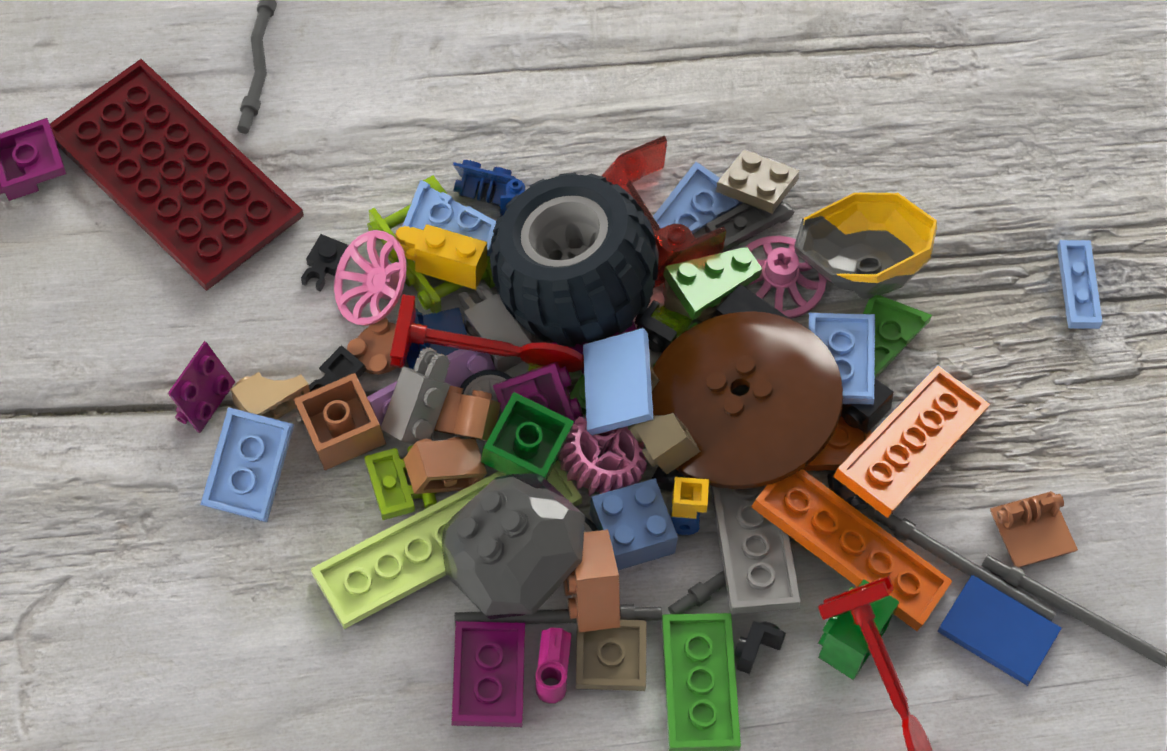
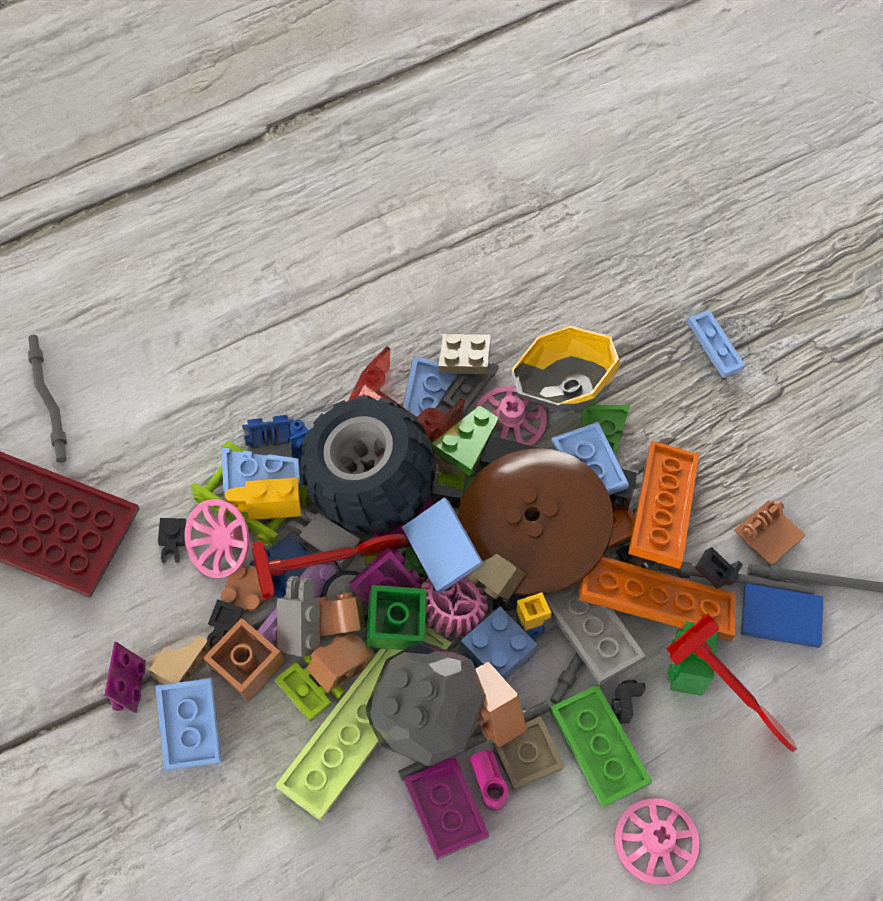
camera: 25 degrees left, 0 degrees up
(940, 541) = (717, 569): none -> black bracket

